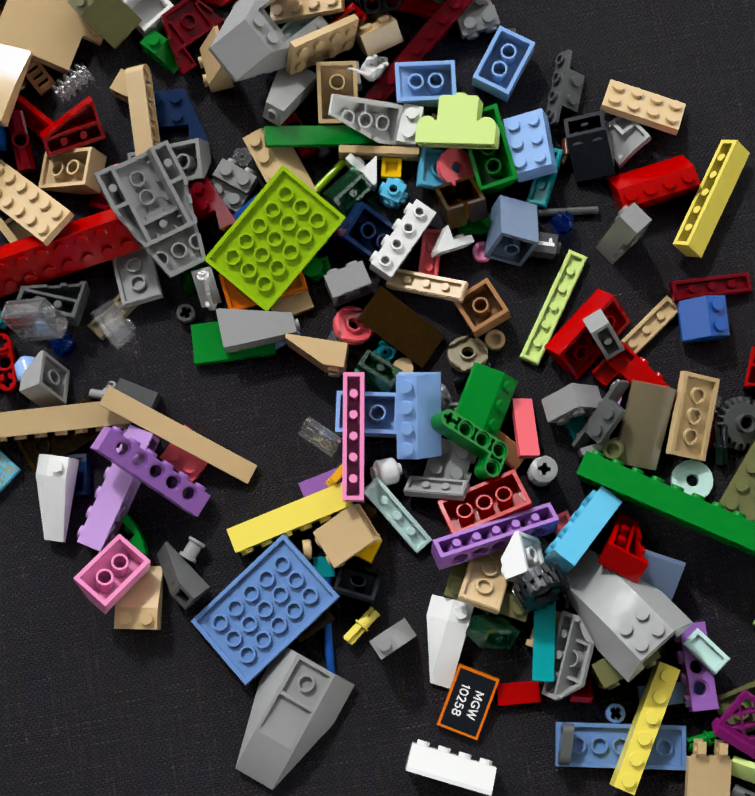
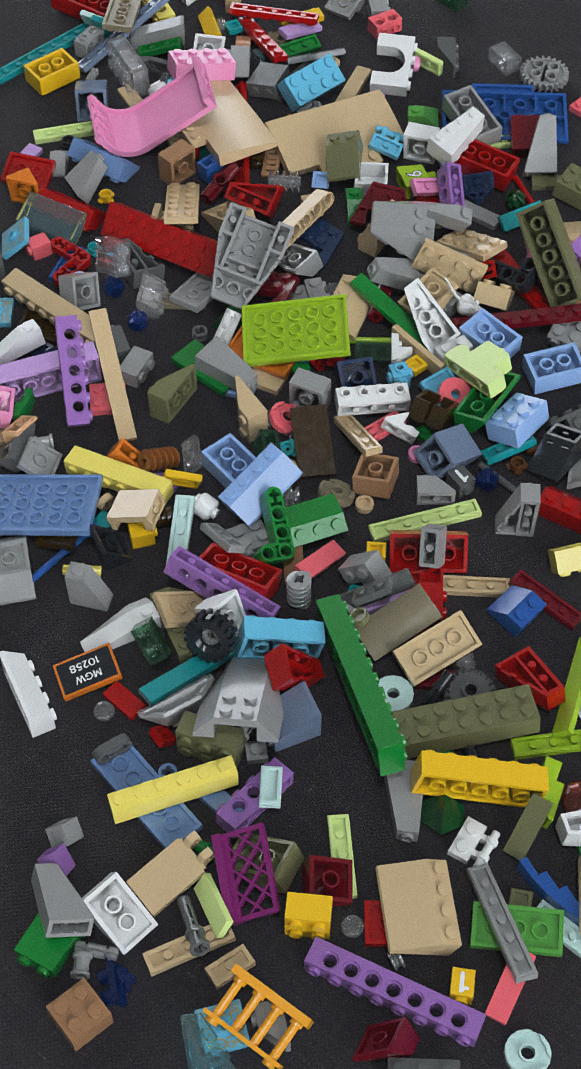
camera: 45 degrees right, 25 degrees down
(101, 50) = (320, 180): none -> light blue plate
(124, 356) = (137, 320): none -> clear blue gear
(160, 560) = (18, 427): none -> light nougat slope
(177, 401) = (136, 366): none -> light grey brick
(212, 570) = (39, 458): none -> light grey plate
(243, 407) = (172, 393): none -> olive slope
(277, 494) = (124, 452): none -> orange slope
(304, 471) = (158, 459): none -> dark orange piece
(353, 437) = (205, 456): bright pink brick -> none
(515, 717) = (104, 711): none -> clear plate
(532, 276) = (433, 491): none -> light grey slope
(551, 374) = (380, 546): none -> yellow plate
(570, 181) = (517, 465): none -> reddish brown plate

